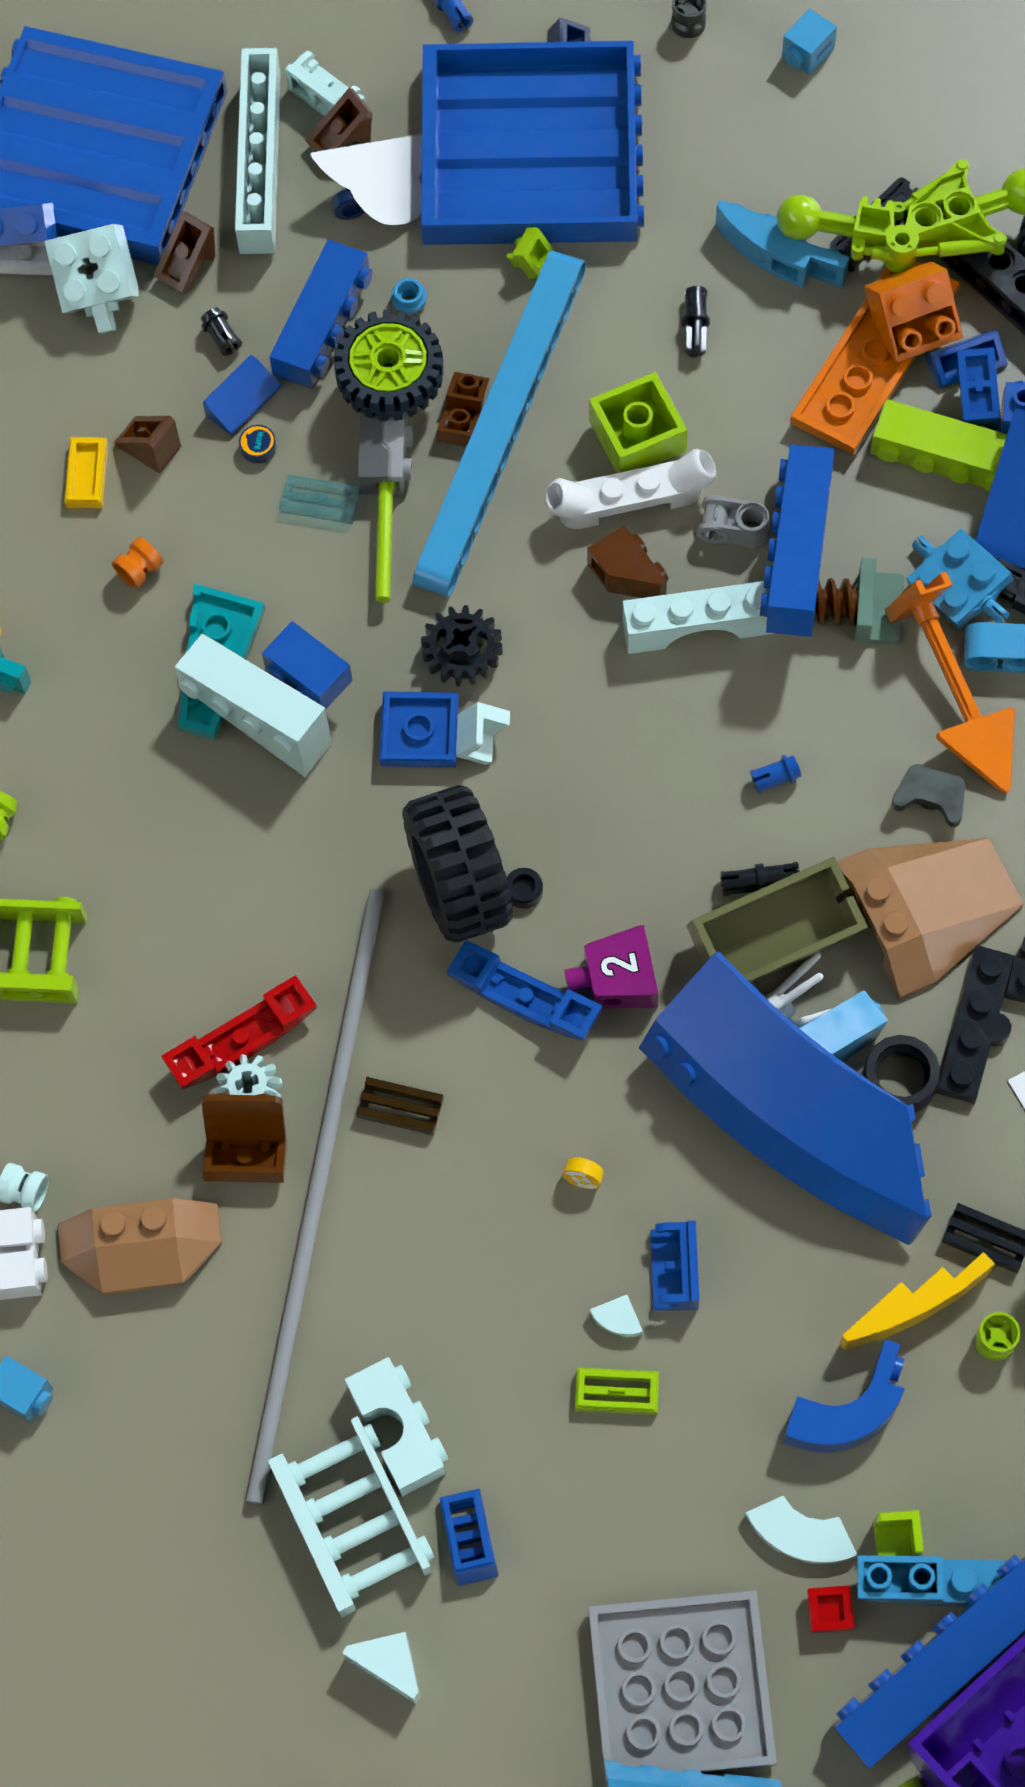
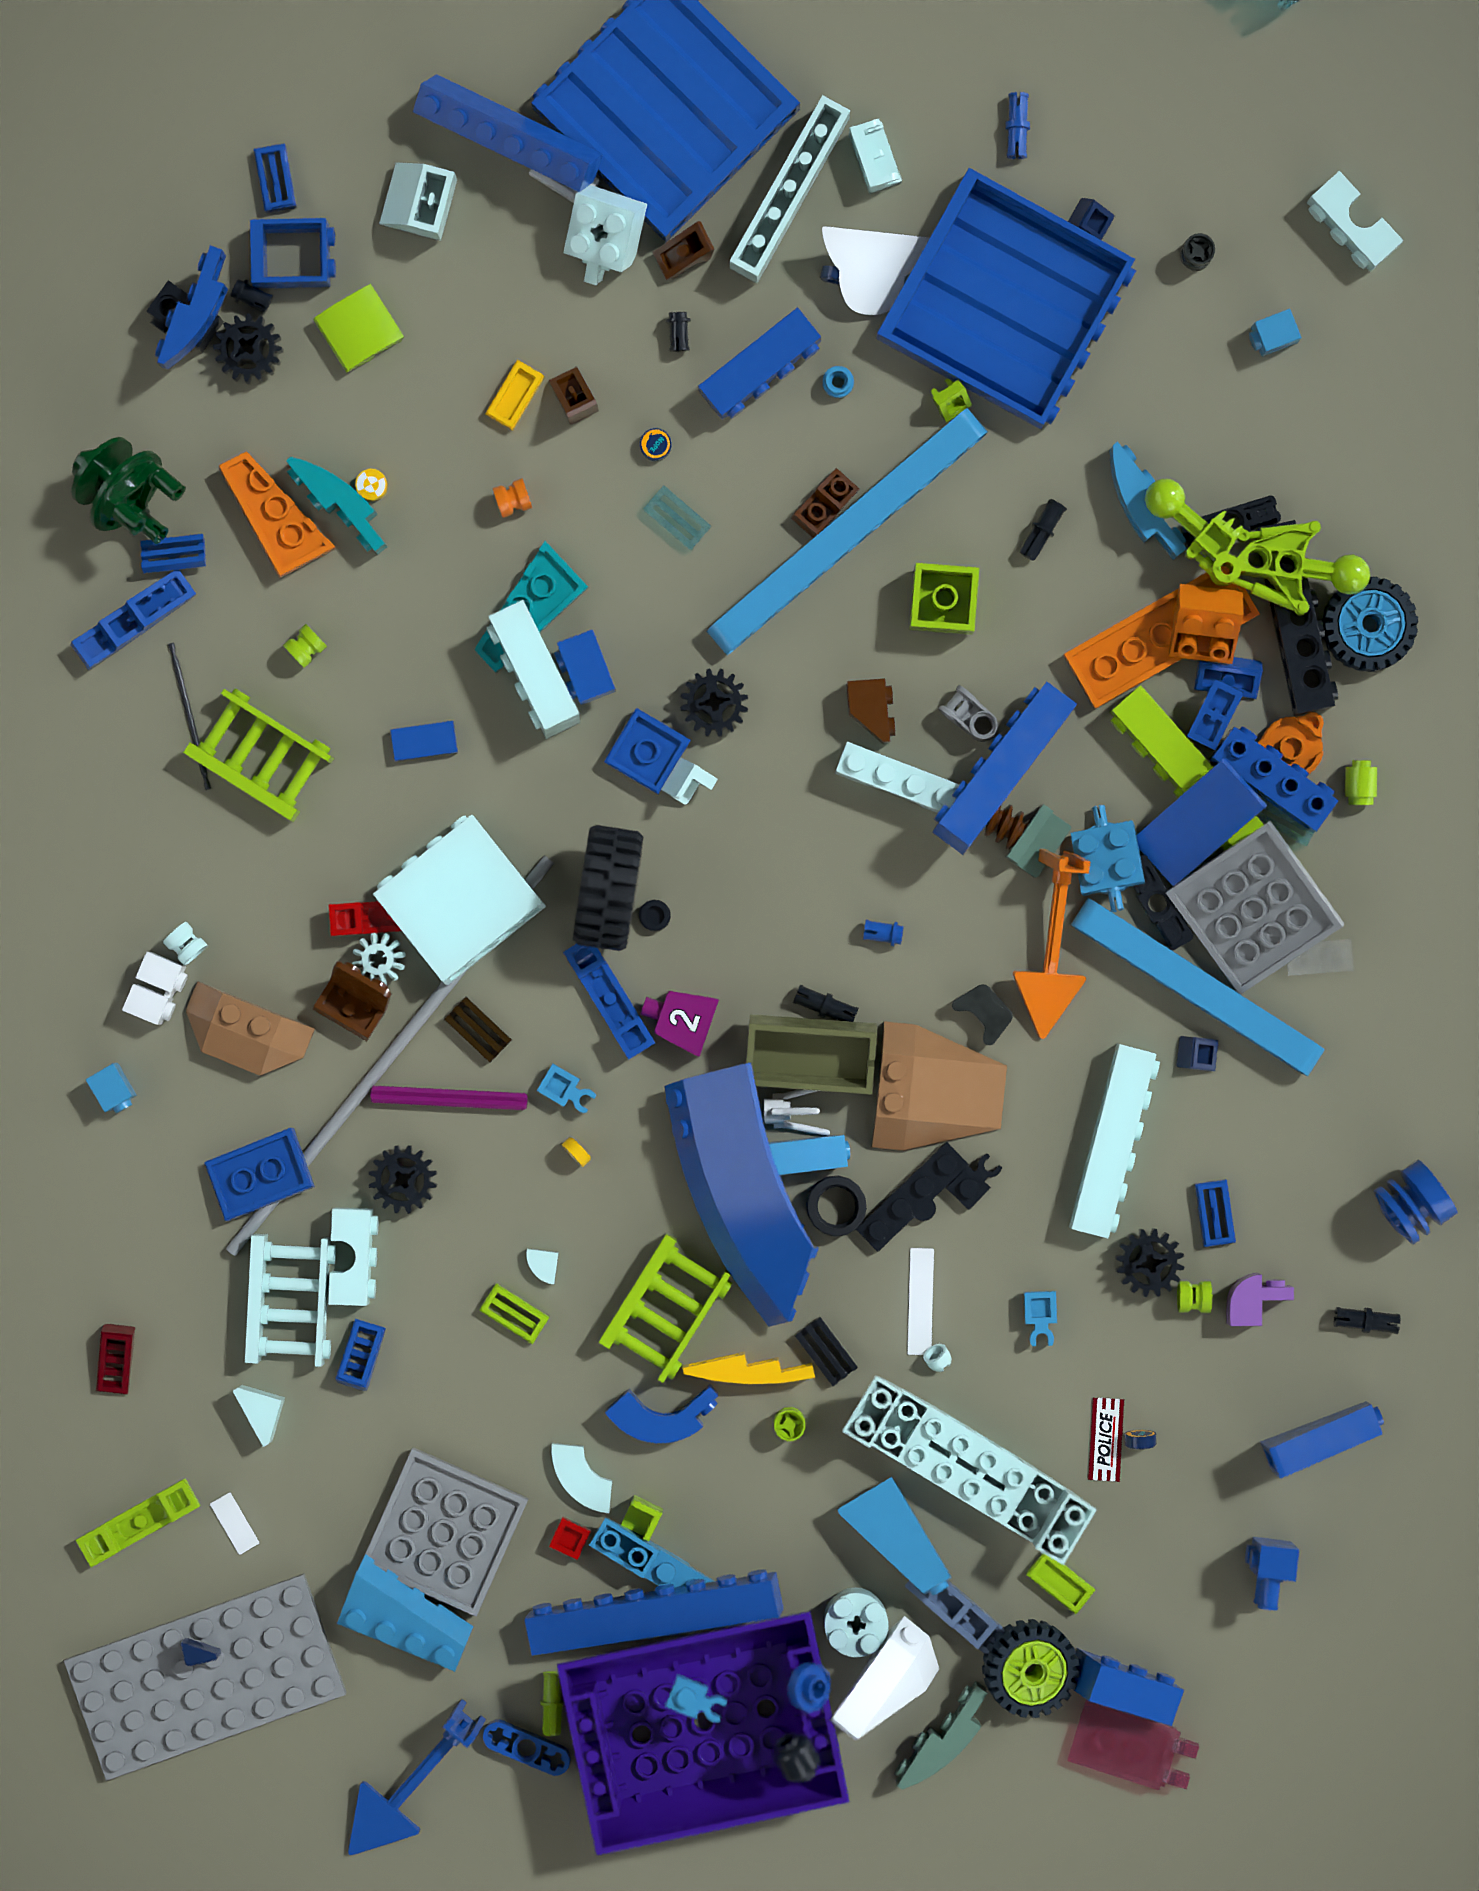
camera: 25 degrees right, 20 degrees up
(169, 1669) = (115, 1332): none -> dark red slope
(175, 845) = (424, 741): none -> blue tile
(240, 395) = (665, 397): blue slope -> none
(240, 1393) = (259, 1174): none -> blue tile
(303, 974) = (458, 899): none -> light aqua panel
(344, 123) = (863, 205): reddish brown slope -> none
(384, 472) = (751, 499): piece -> none
(391, 1299) = (411, 1191): none -> black gear
(395, 388) = (787, 423): wheel -> none
(408, 1195) = (449, 1097): none -> magenta axle
(525, 1114) = (561, 1087): none -> dark azure plate
(671, 482) = (909, 647): white plate -> none
(675, 1266) = (601, 1252): blue hinge -> none
(746, 1304) = (635, 1307): none -> lime fence

